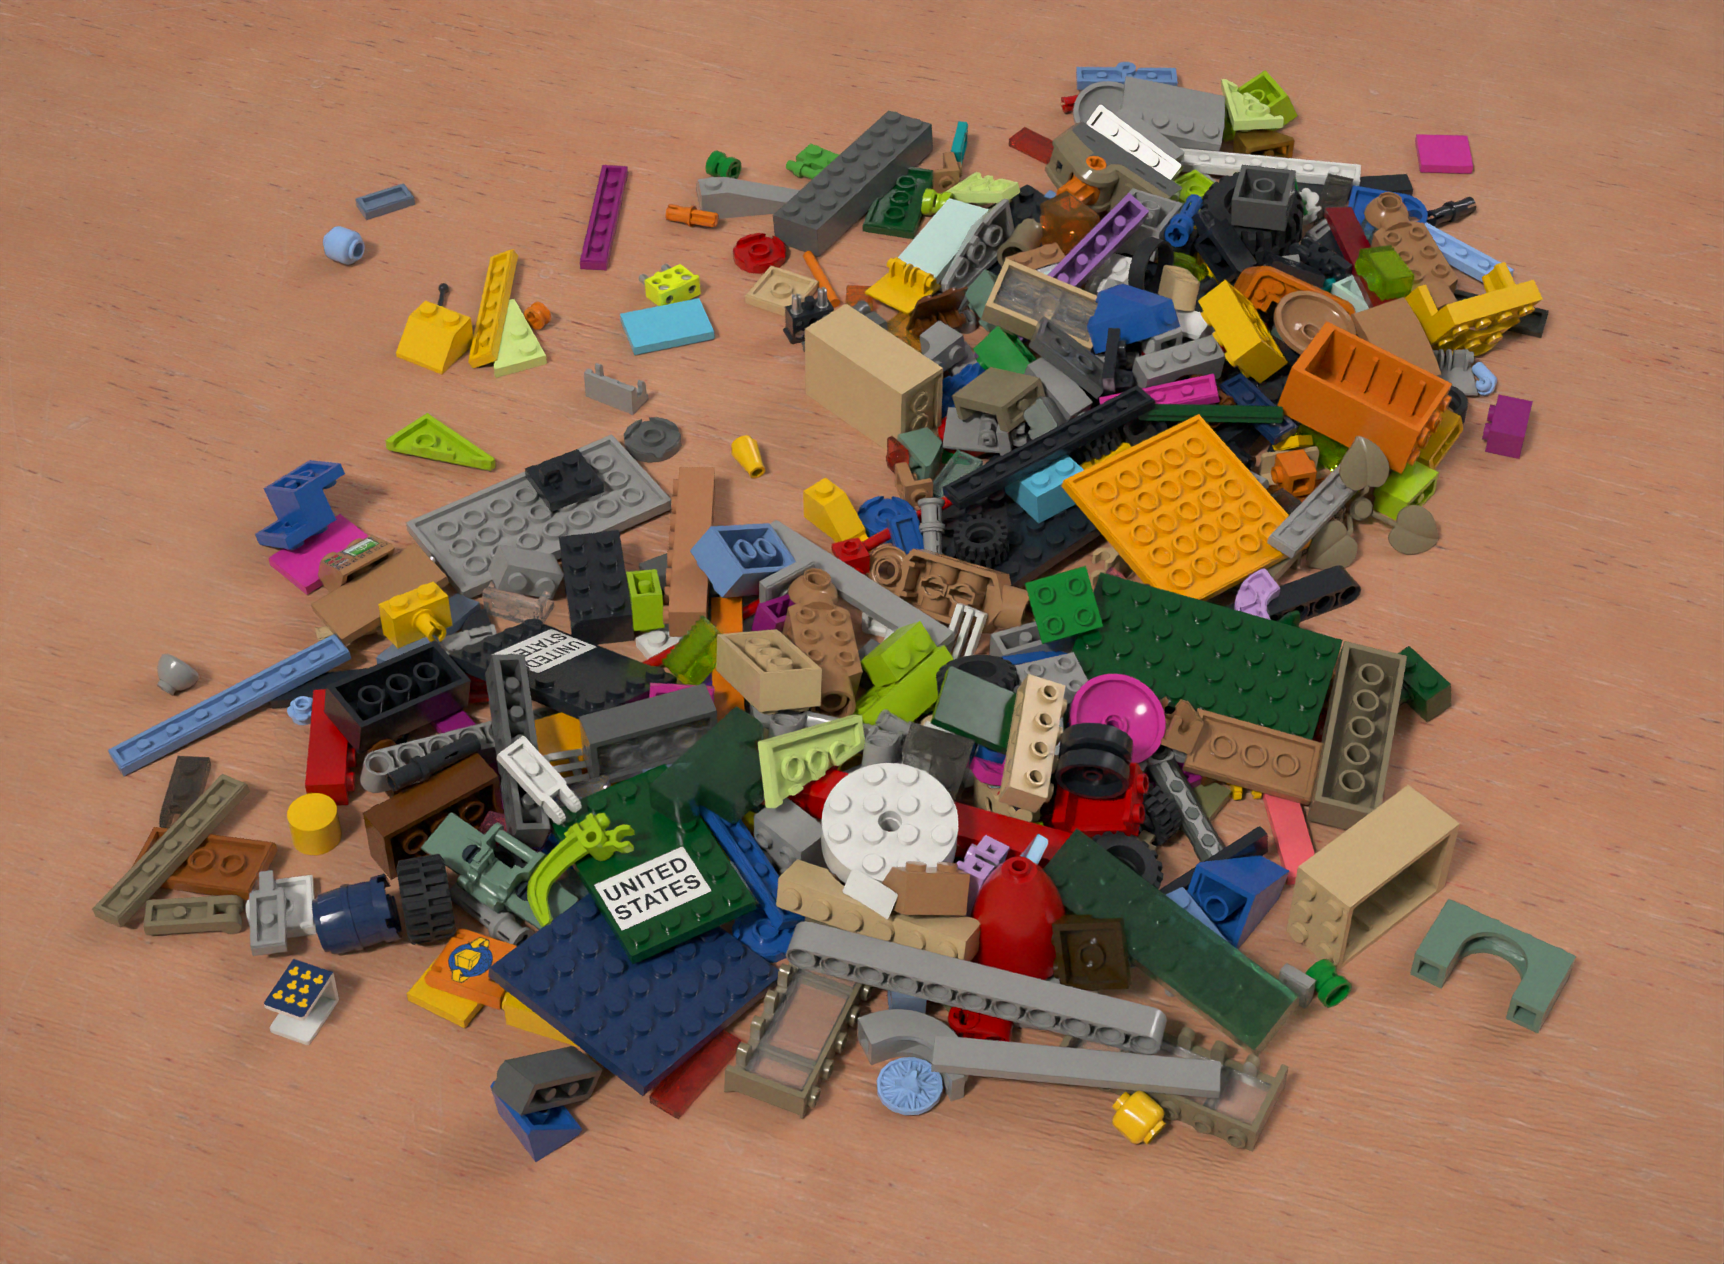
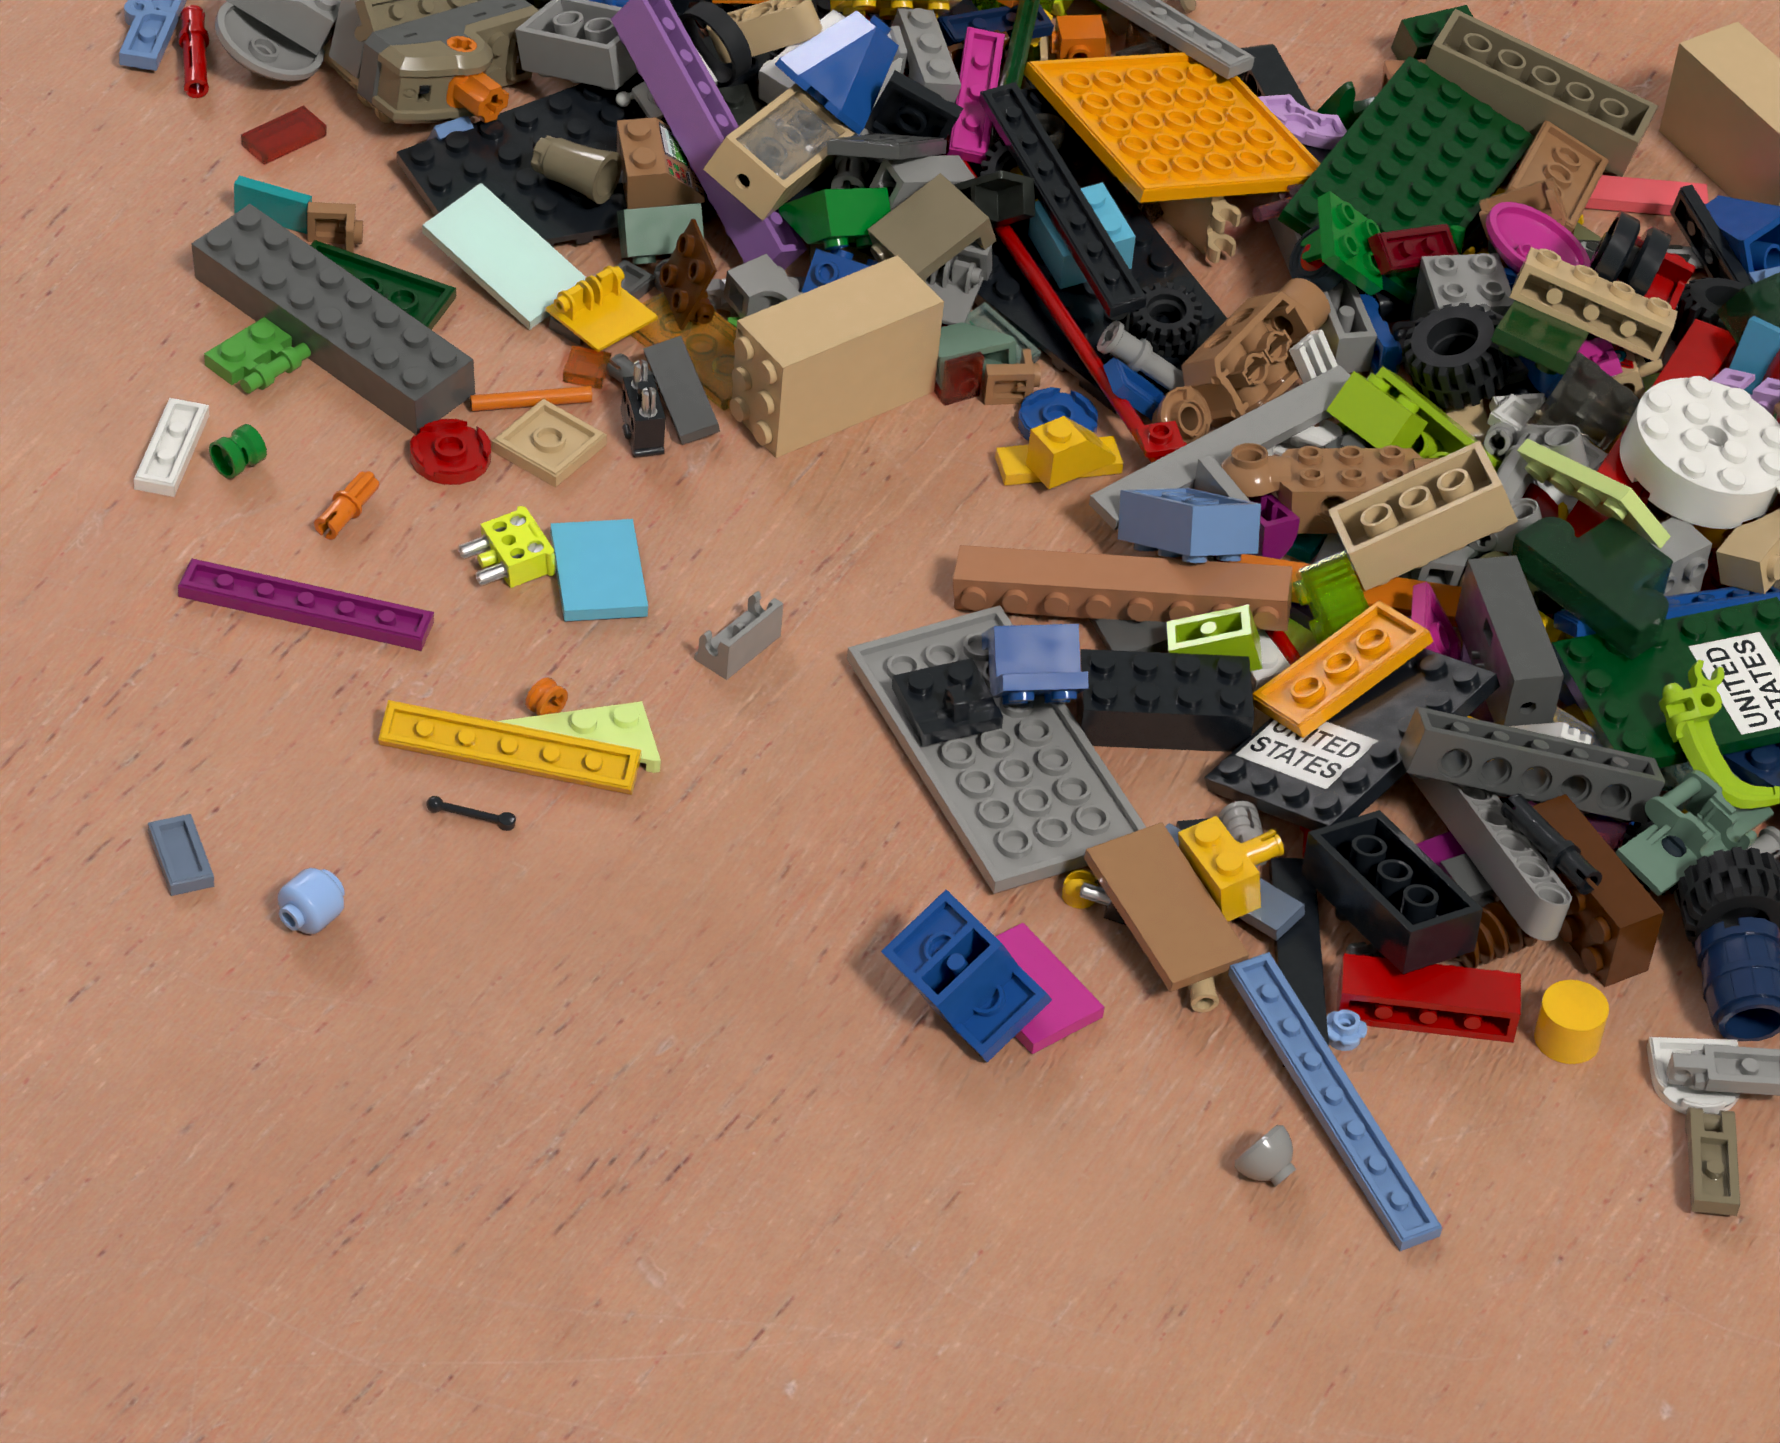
camera: 85 degrees left, 0 degrees up
(170, 850) = (1611, 1167): dark tan tile -> none
(185, 787) = (1487, 1165): clear smoke hinge -> none
(218, 865) = (1622, 1147): dark orange tile -> none
(352, 561) = (1099, 928): medium nougat slope -> none
(435, 337) = (573, 816): yellow slope -> none
(436, 441) = (810, 843): lime wing -> none
(516, 606) = (1173, 785): clear hinge -> none
(525, 571) = (1141, 756): light grey brick -> none
(538, 778) = (1605, 737): white hinge -> none
(591, 501) = (1035, 662): none -> bracket
(621, 656) = (1341, 668): none -> light orange tile
(652, 440) = (847, 617): dark grey tile -> none
(738, 147) = (171, 447): none -> white tile
(740, 198) = (311, 449): light grey wedge -> none
(747, 454) = (914, 522): yellow cone -> none
(934, 201) = (405, 247): lime wheel -> none
(980, 246) = (556, 206): light grey wedge -> none
(984, 190) = (403, 196): yellowish green wing -> none
(1066, 221) = (583, 100): clear orange slope -> none
(1088, 649) = (1404, 248): none -> dark red tile

